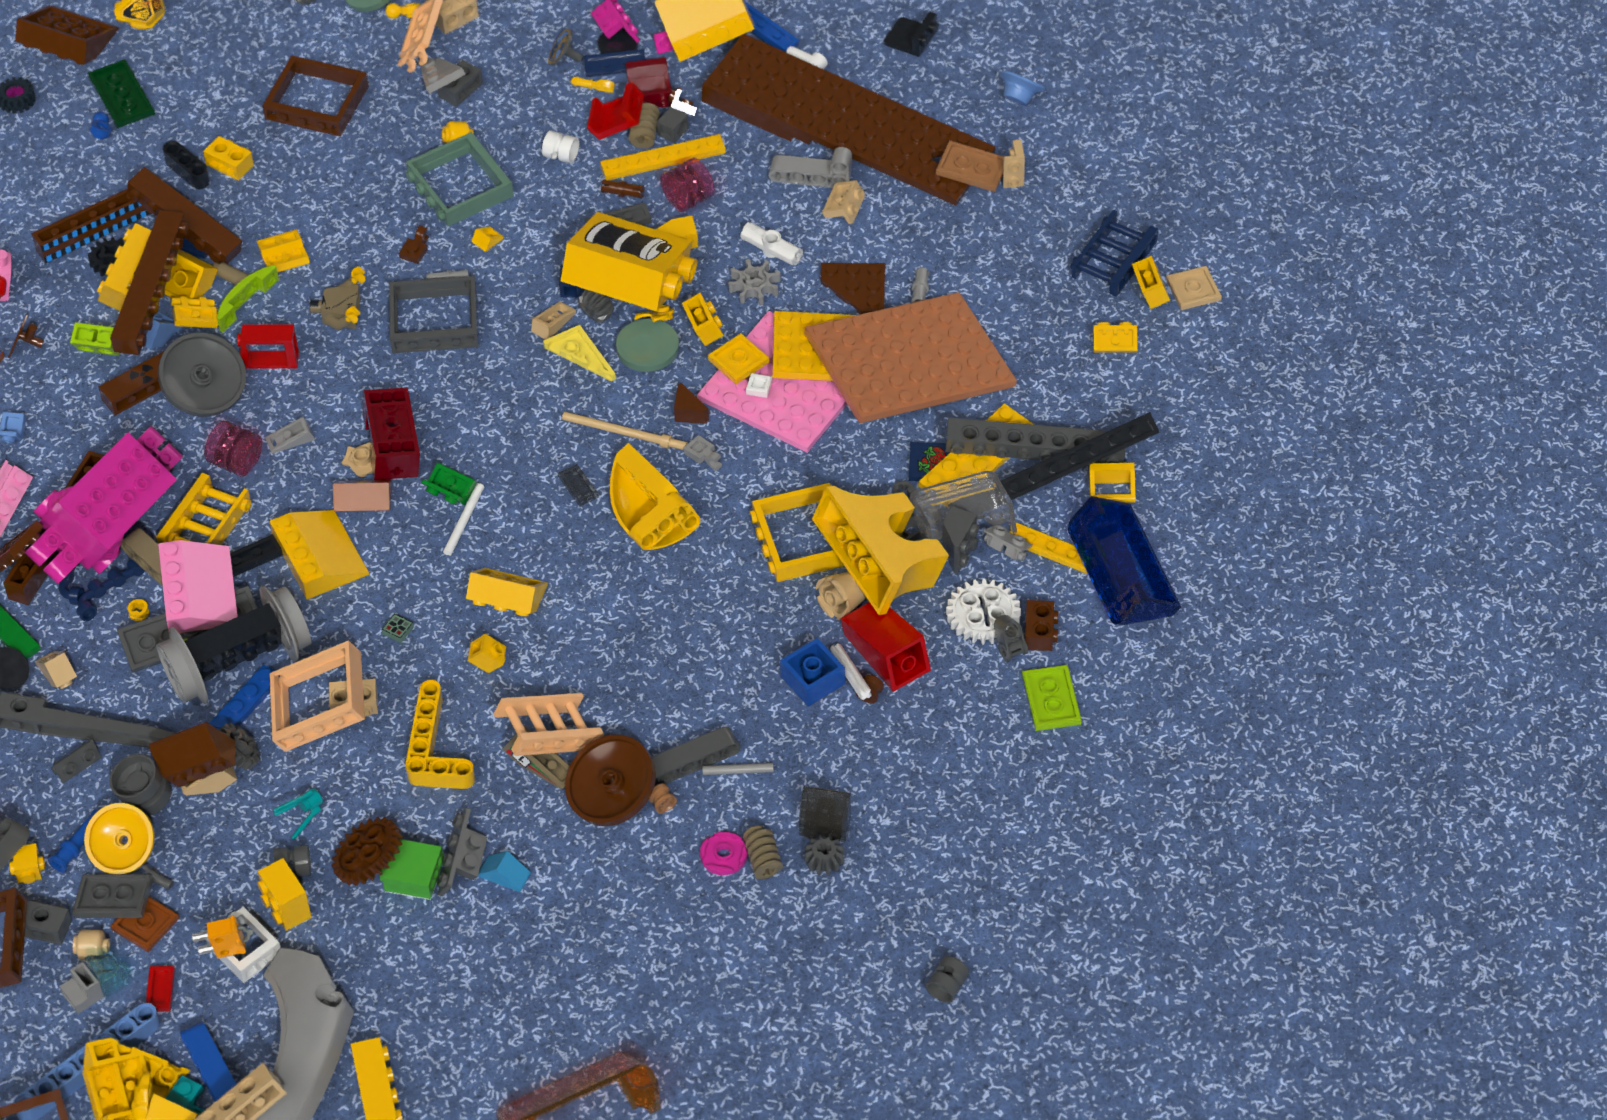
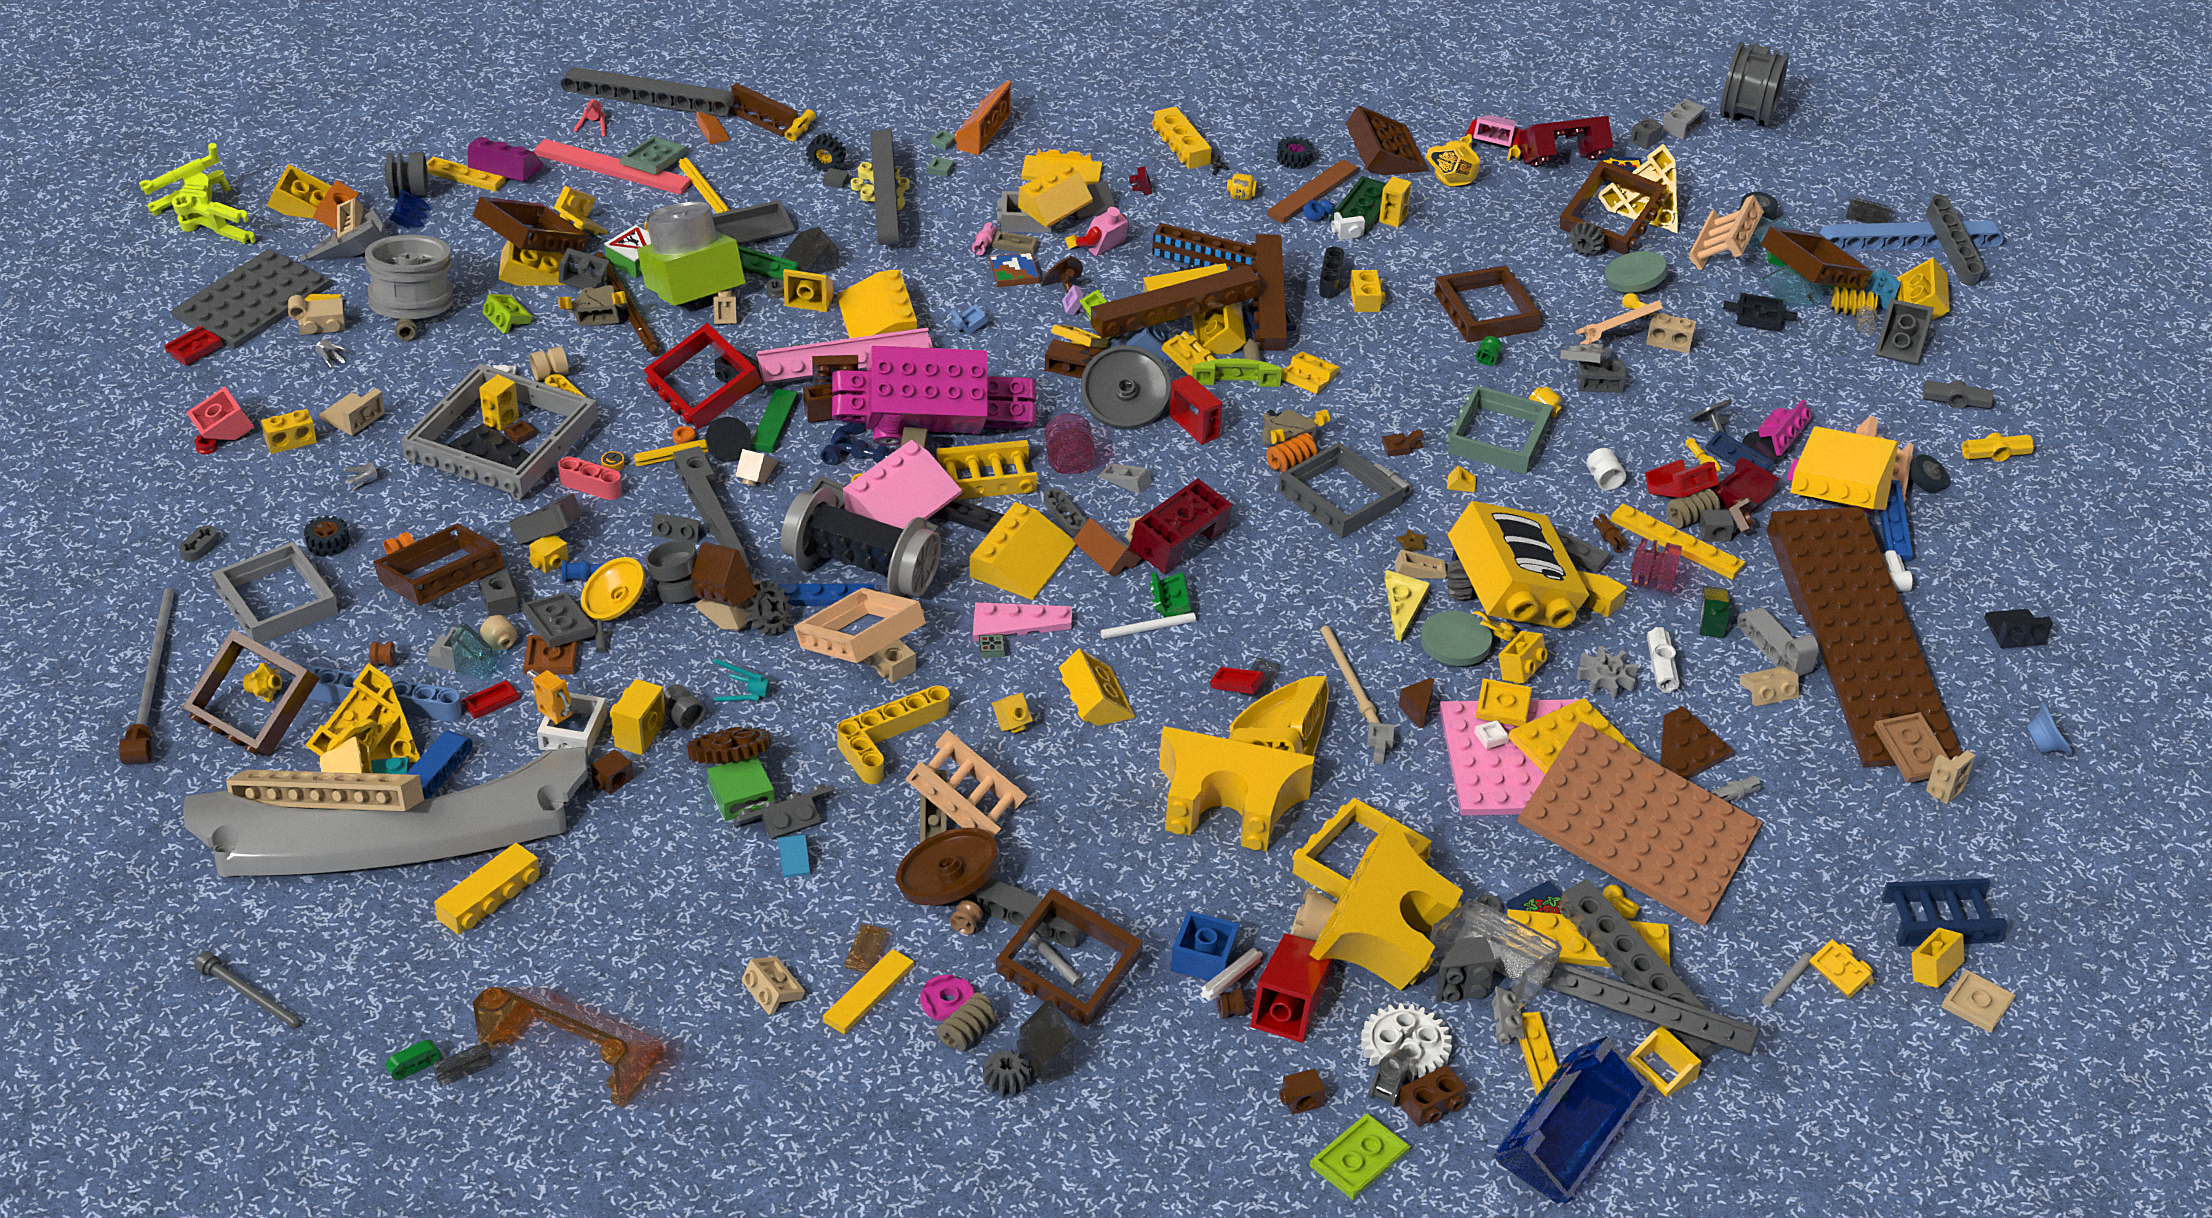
camera: 50 degrees right, 10 degrees down
(24, 155) = (1242, 187): none -> yellow head
(43, 1038) = (382, 653): none -> dark orange wheel
(56, 346) = (1071, 300): none -> lavender tile
(72, 114) = (1313, 190): none -> dark orange tile
(107, 368) = (1079, 336): none -> yellow plate
(143, 122) = (1348, 227): none -> white bracket
(150, 72) = (1395, 201): none -> yellow brick
(301, 504) = (1064, 504): none -> dark grey beam
(321, 942) = (612, 772): none -> reddish brown brick
(369, 129) = (1489, 351): none -> green wheel
(370, 319) = (1291, 452): none -> orange piece
(380, 600) = (1019, 619): none -> bright pink wing
(523, 312) = (1407, 539): none -> pearl gold plate
(572, 499) = (1237, 680): none -> red tile
(624, 954) = (771, 983): none -> tan bracket
(635, 877) = (865, 948): none -> clear orange tile
(678, 898) = (868, 991): none -> yellow tile
(680, 551) = (1232, 774): none -> yellow piece
(750, 182) = (1714, 611): none -> dark green slope
(750, 722) = (1090, 923): none -> reddish brown window
(973, 414) = (1624, 906): none -> yellow plate
(978, 694) = (1302, 1091): none -> reddish brown brick
(1096, 373) = (1787, 980): none -> light grey bar

